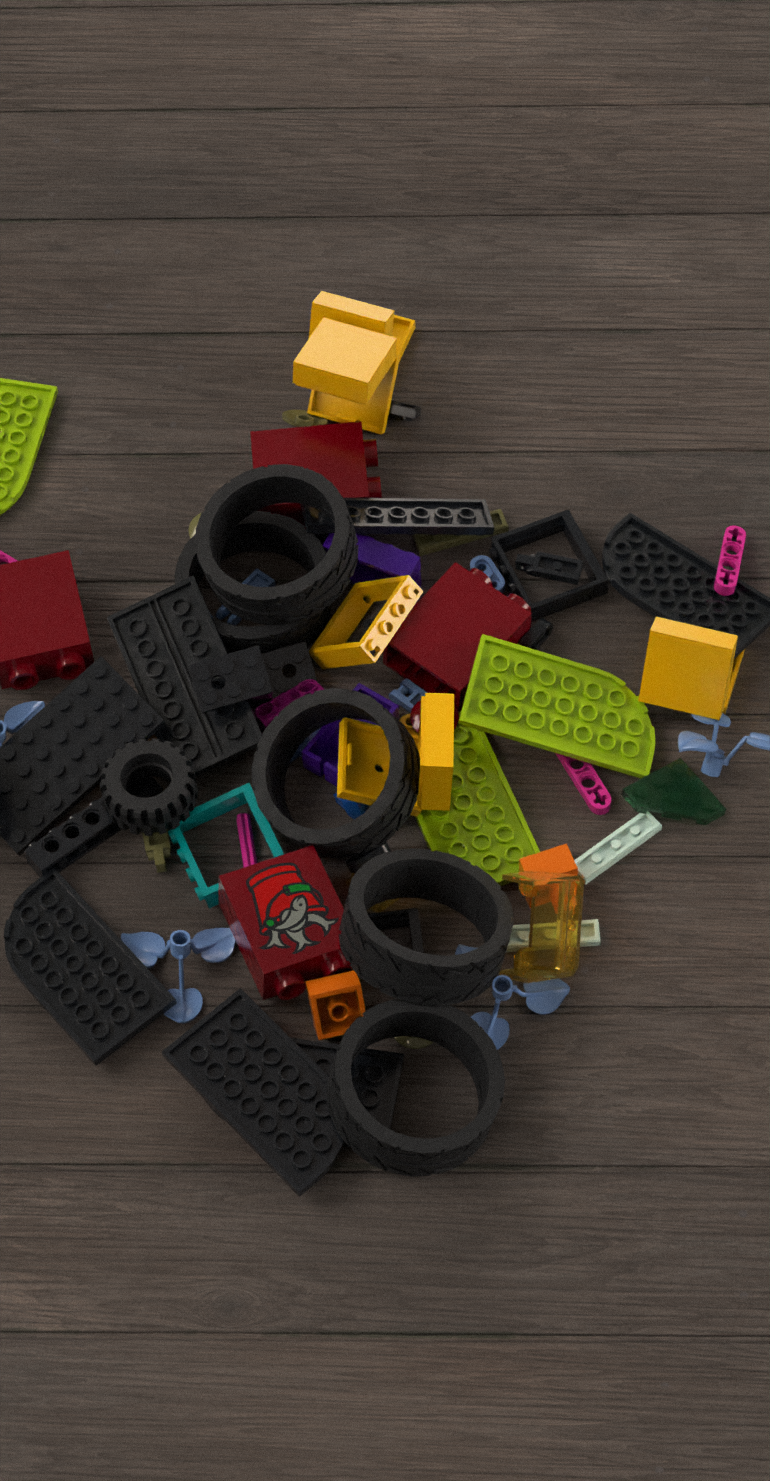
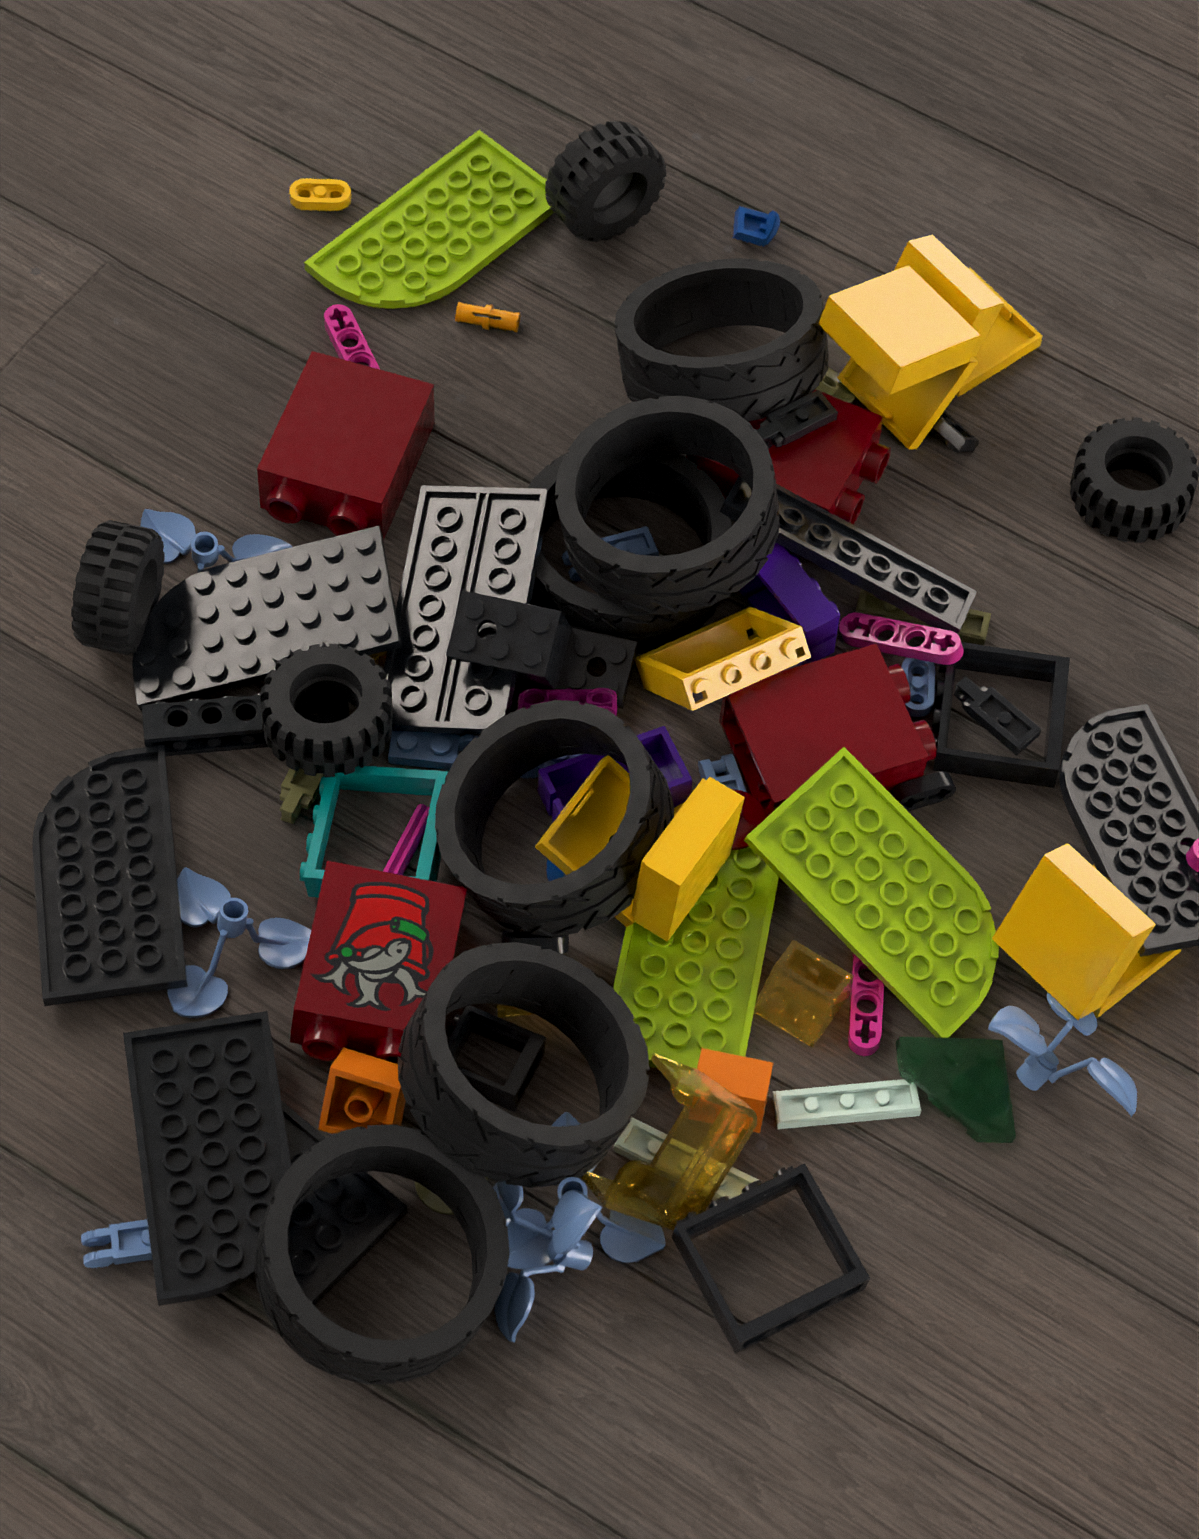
camera: 25 degrees right, 0 degrees up
(76, 487) = (467, 312): none -> light orange pin
(83, 363) = (605, 181): none -> black tyre
(190, 344) = (755, 226): none -> blue plate
(215, 392) = (721, 296): none -> black tyre
(224, 776) = (426, 748): none -> medium blue hinge
(251, 1172) = (128, 1240): none -> medium blue hinge
(314, 448) = (797, 419): none -> black hinge
(459, 548) = (903, 633): none -> dark pink beam
(516, 999) = (570, 1220): none -> medium blue plant
(532, 403) = (1140, 448): none -> black tyre
(549, 795) = (803, 993): none -> clear yellow slope
(657, 922) = (753, 1196): none -> black window

